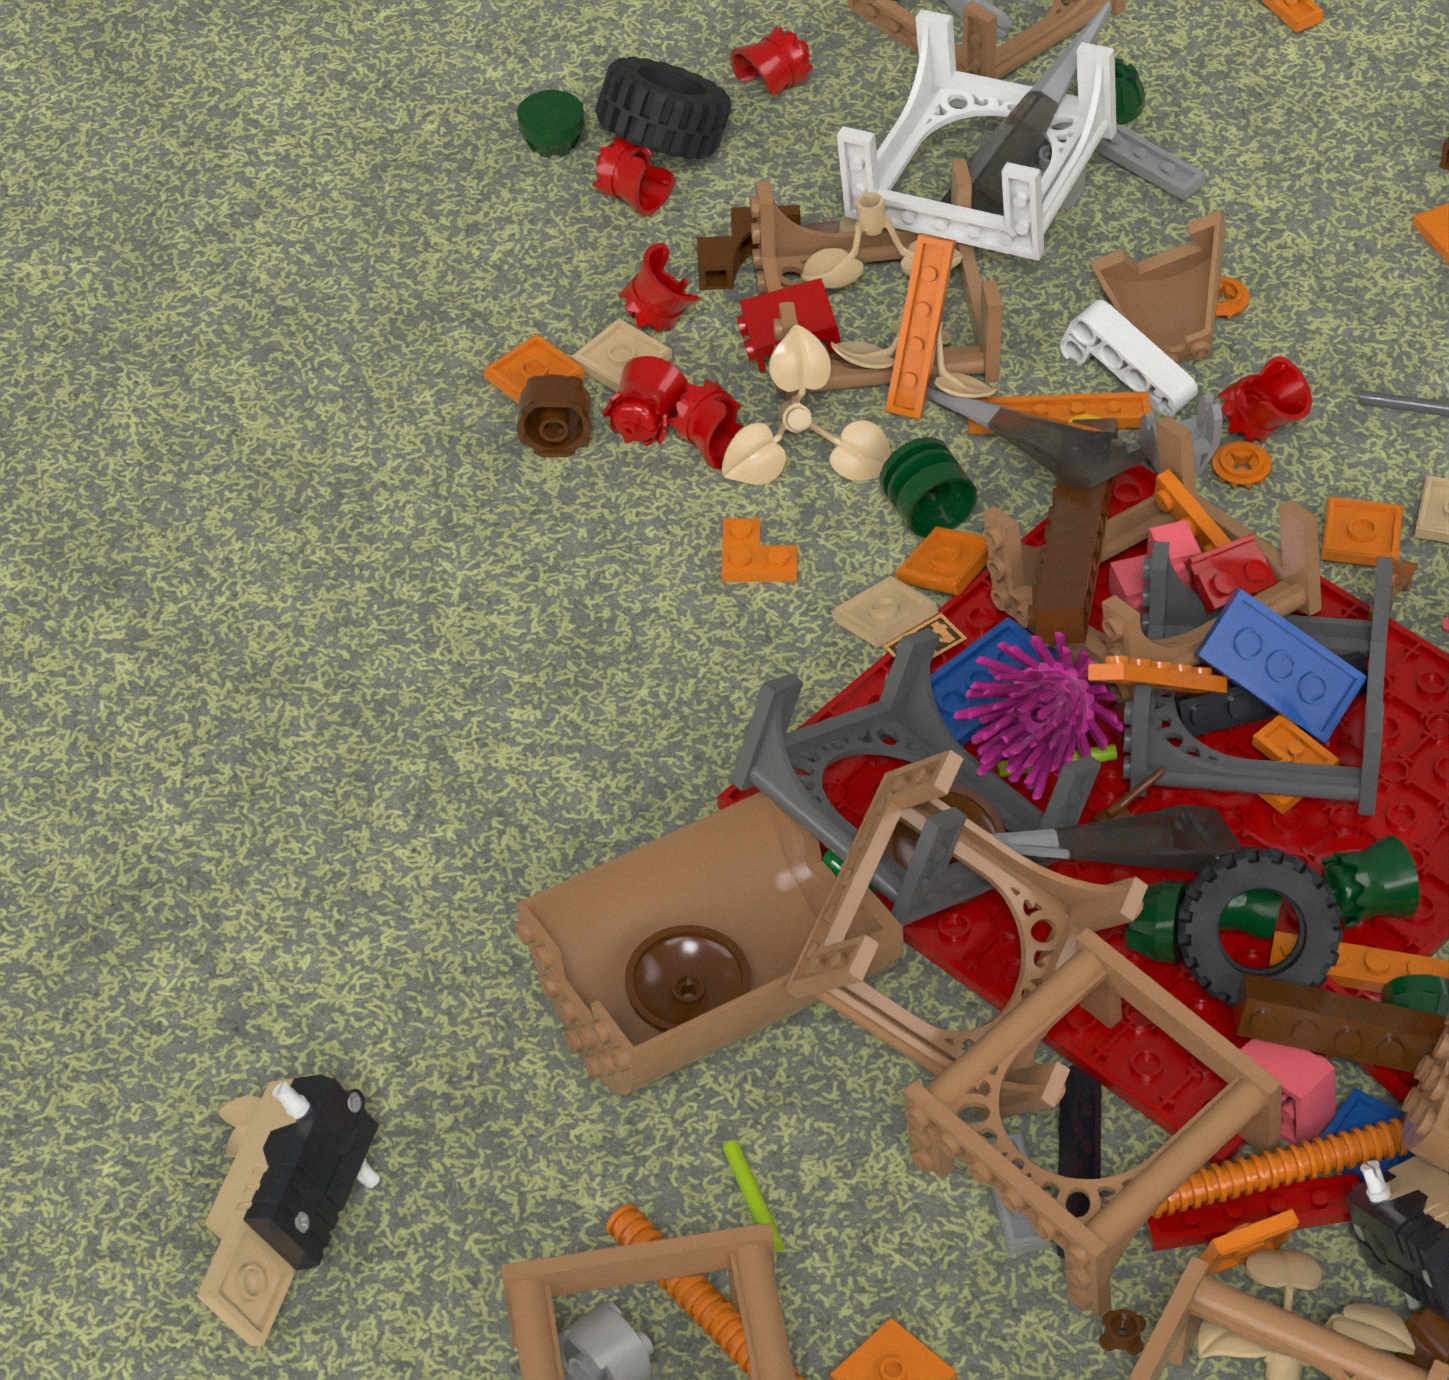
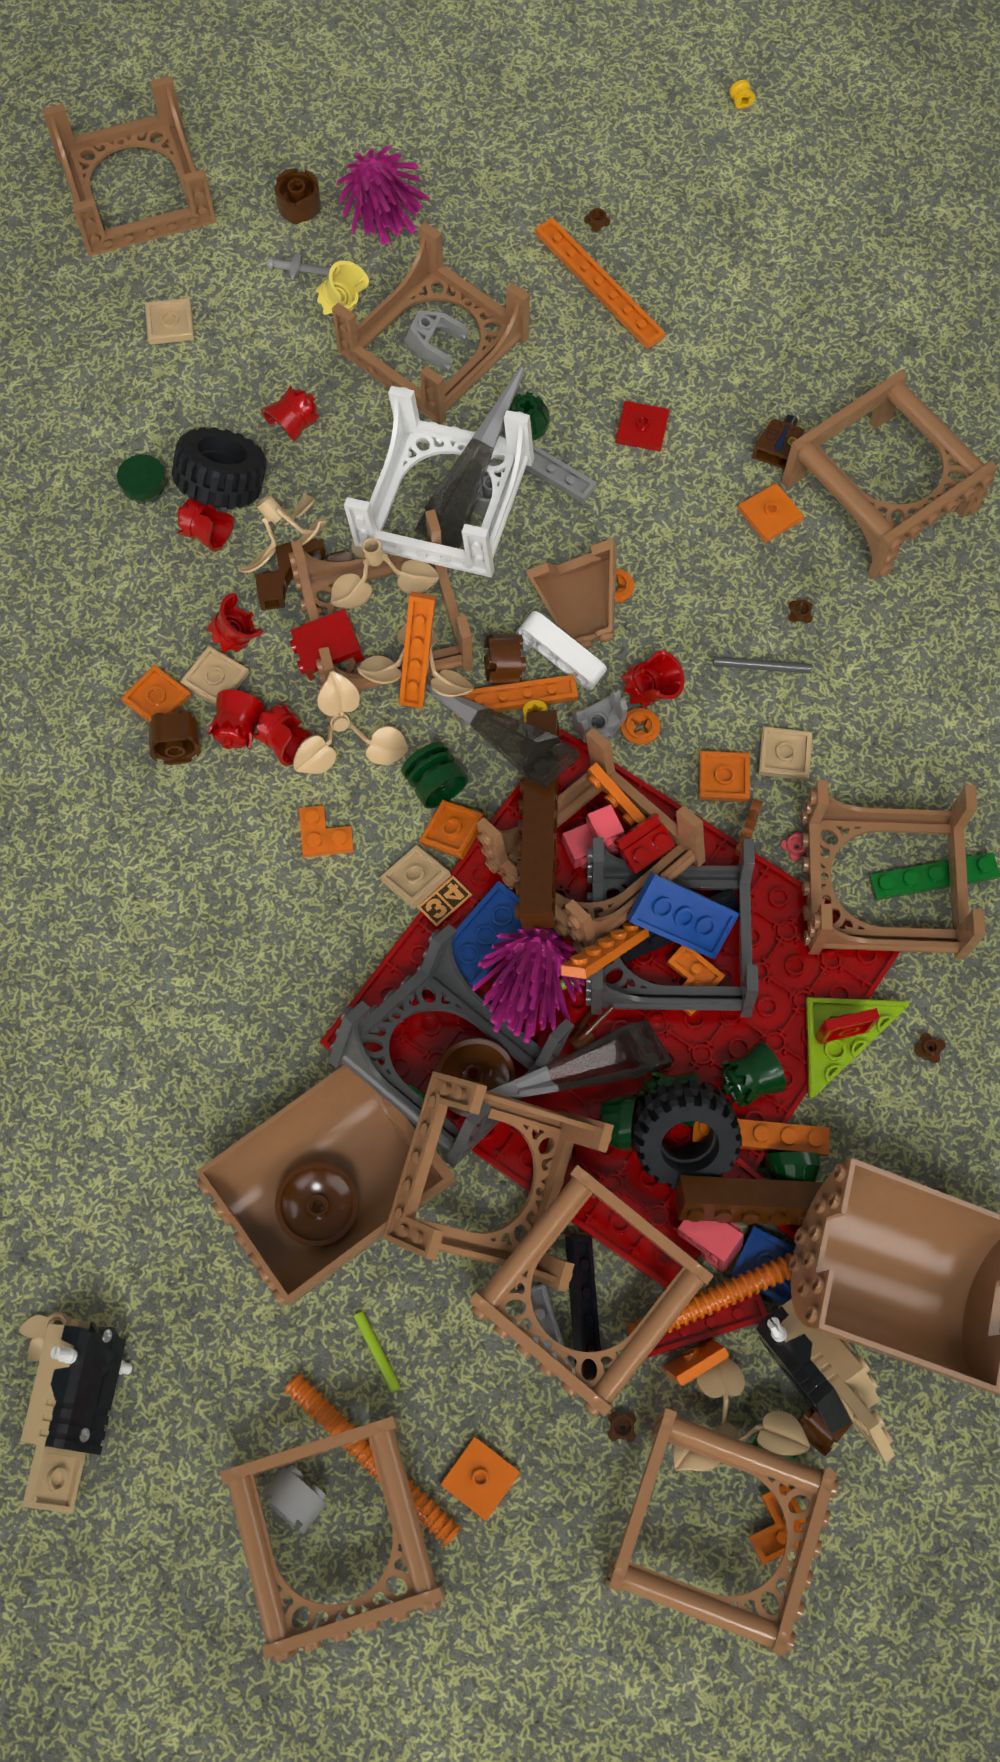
camera: 10 degrees left, 20 degrees up
(734, 158) = (274, 512): none -> tan plant
(1046, 360) = (503, 658): none -> reddish brown brick
(1280, 118) = (642, 426): none -> red plate

